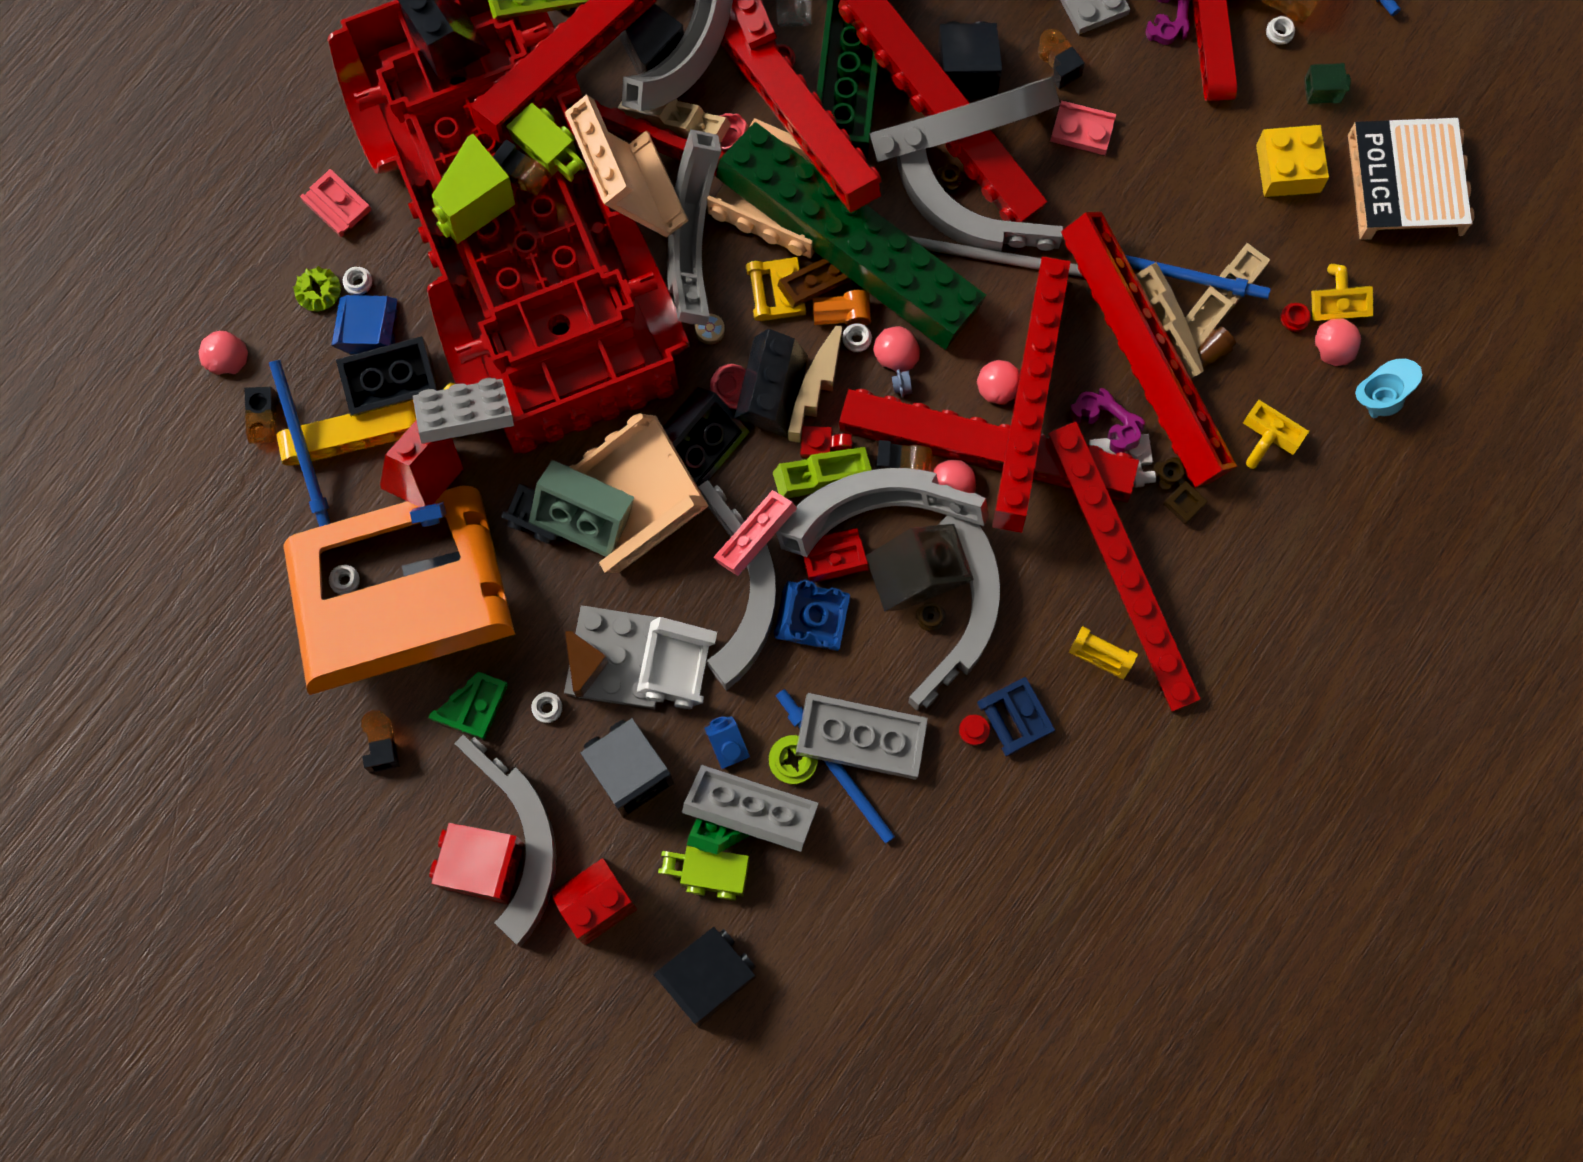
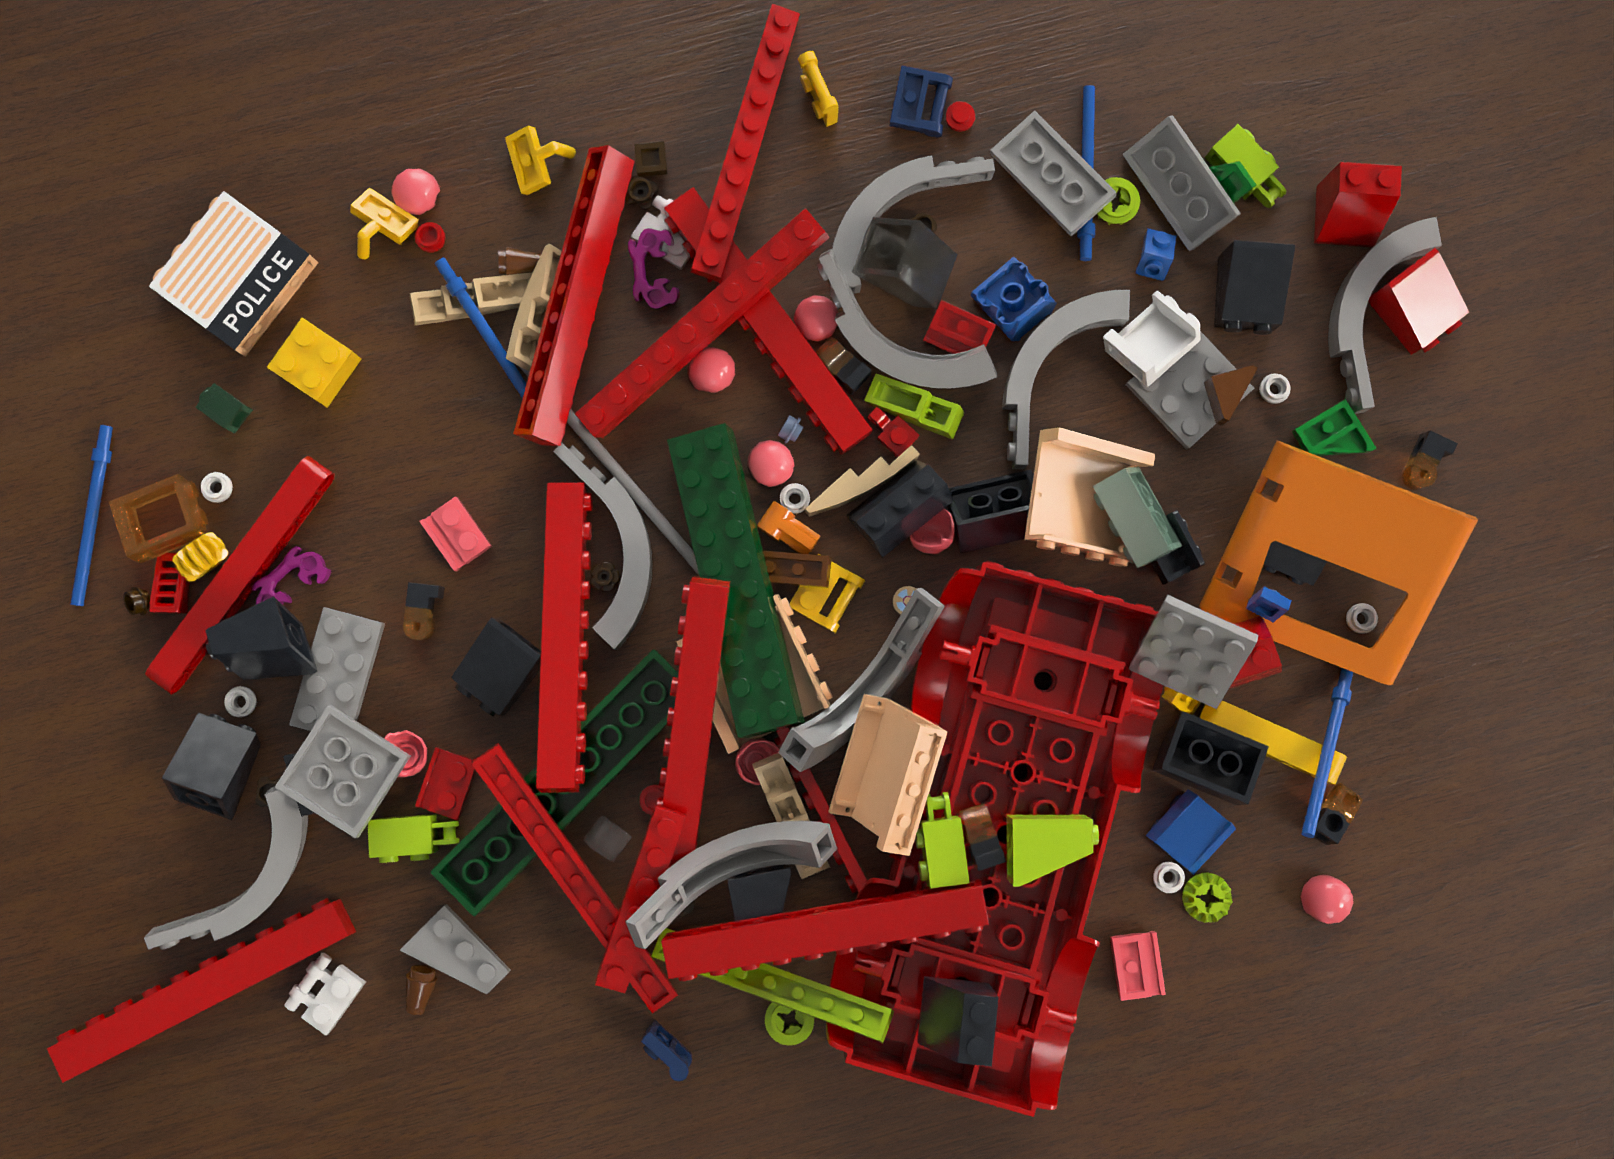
camera: 150 degrees left, 10 degrees up
(706, 975) = (1312, 87): black slope -> none
(755, 532) = (1016, 384): coral plate -> none
(965, 120) = (553, 588): light grey arch -> none
(1389, 386) = (411, 117): medium azure piece -> none

